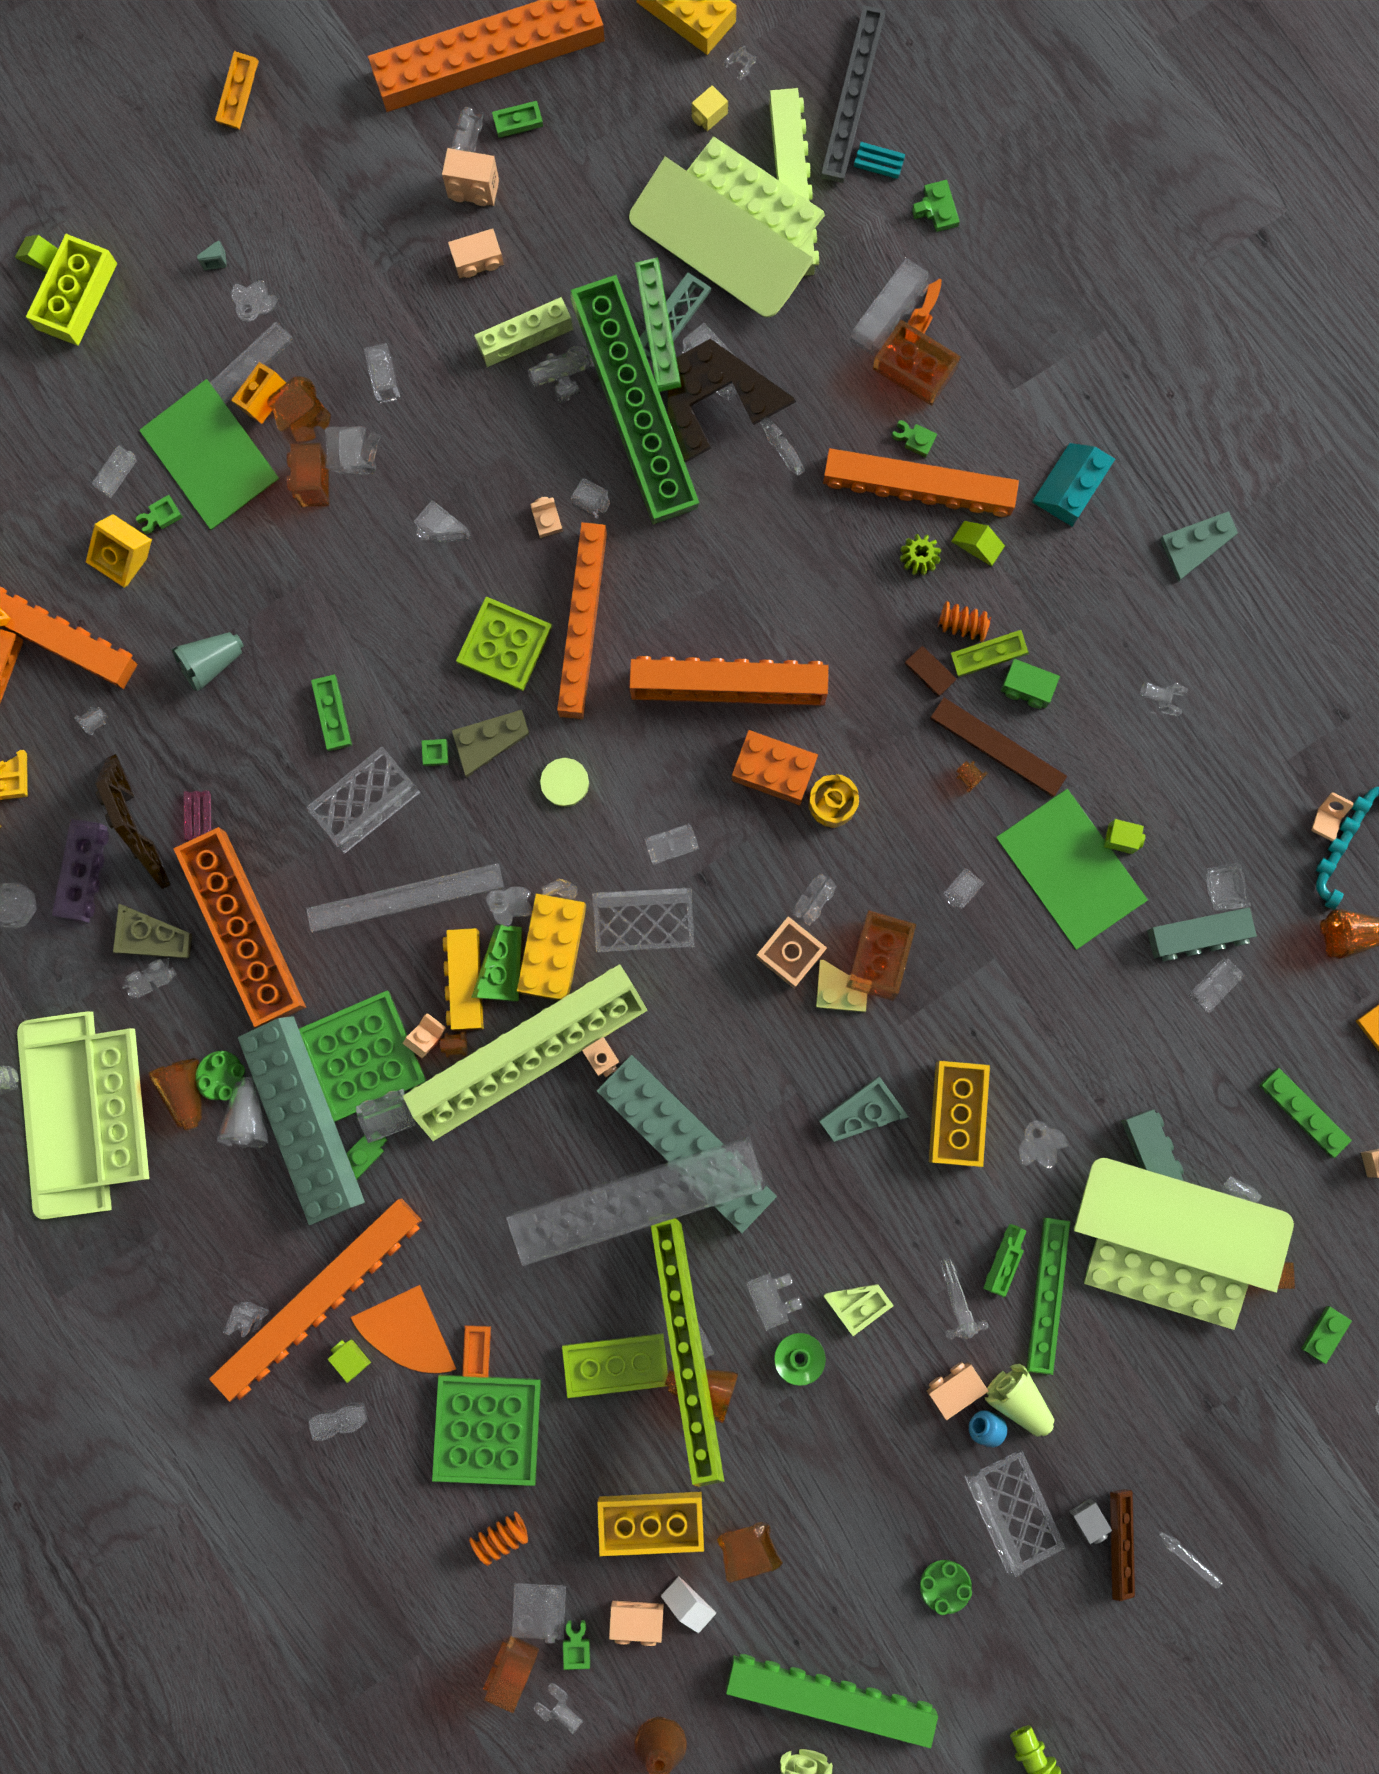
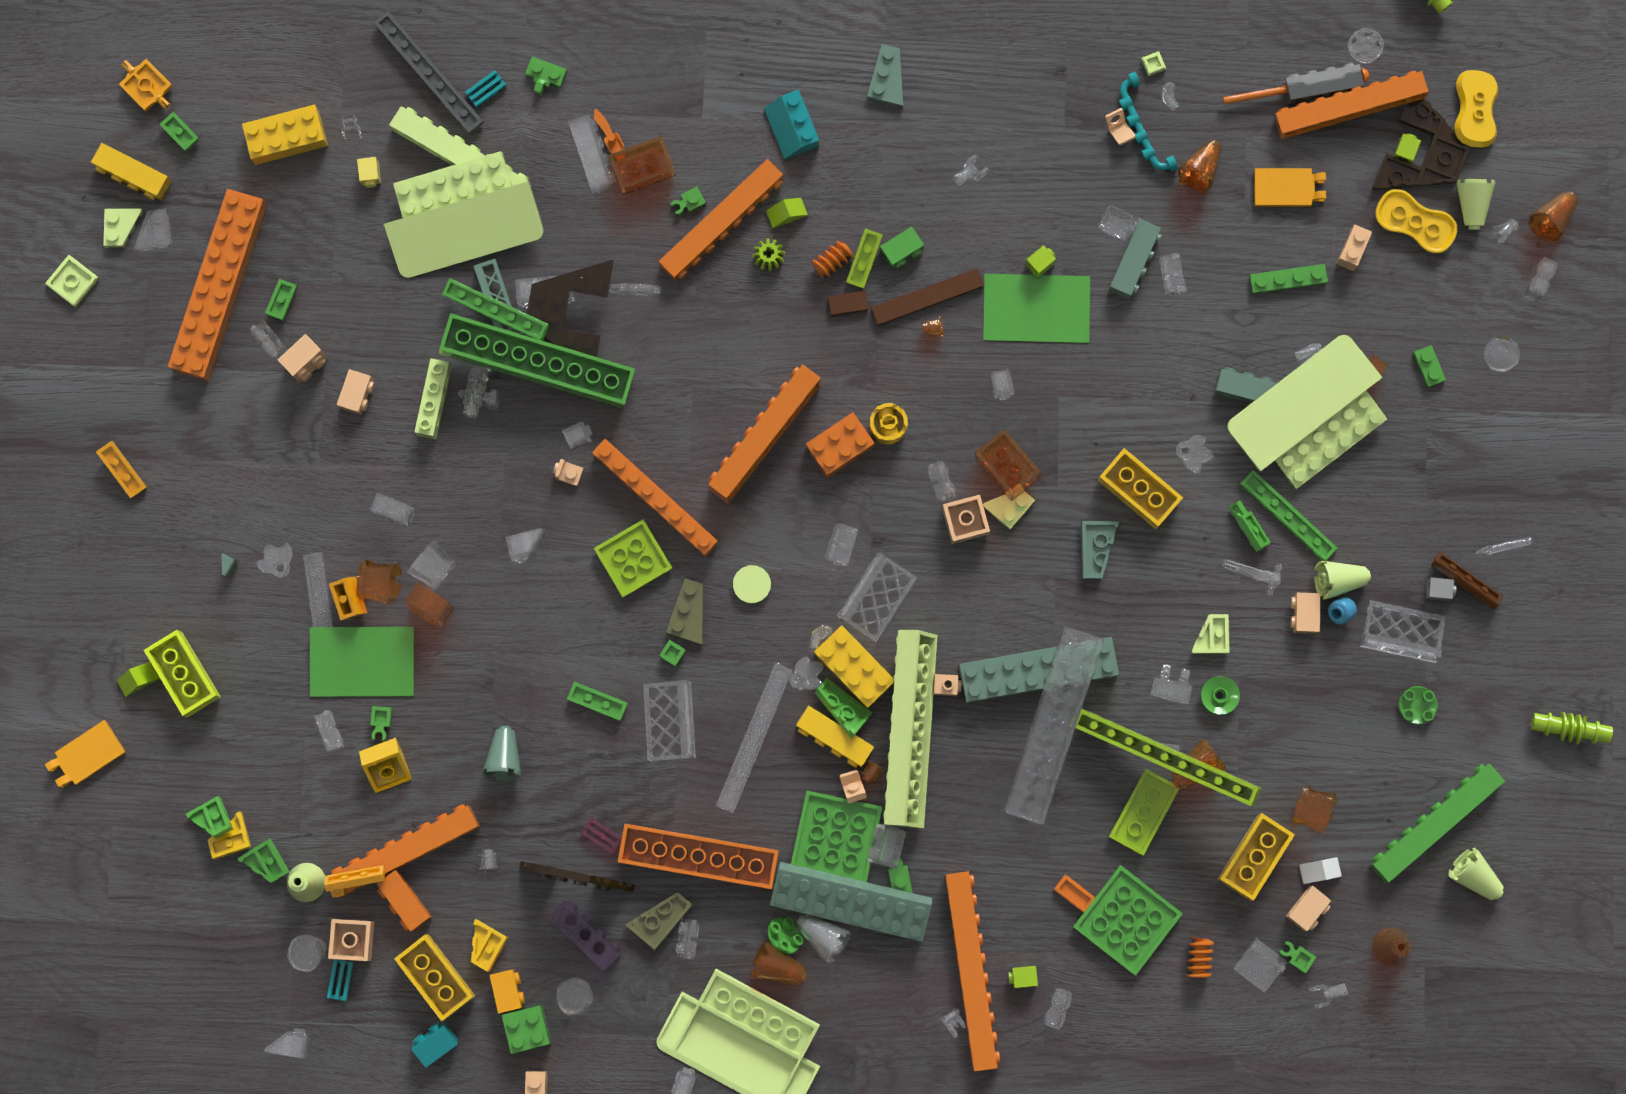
camera: 55 degrees left, 0 degrees up
(406, 1332) = (1031, 930): orange sticker -> none
(509, 1678) = (1286, 1006): clear orange brick -> none

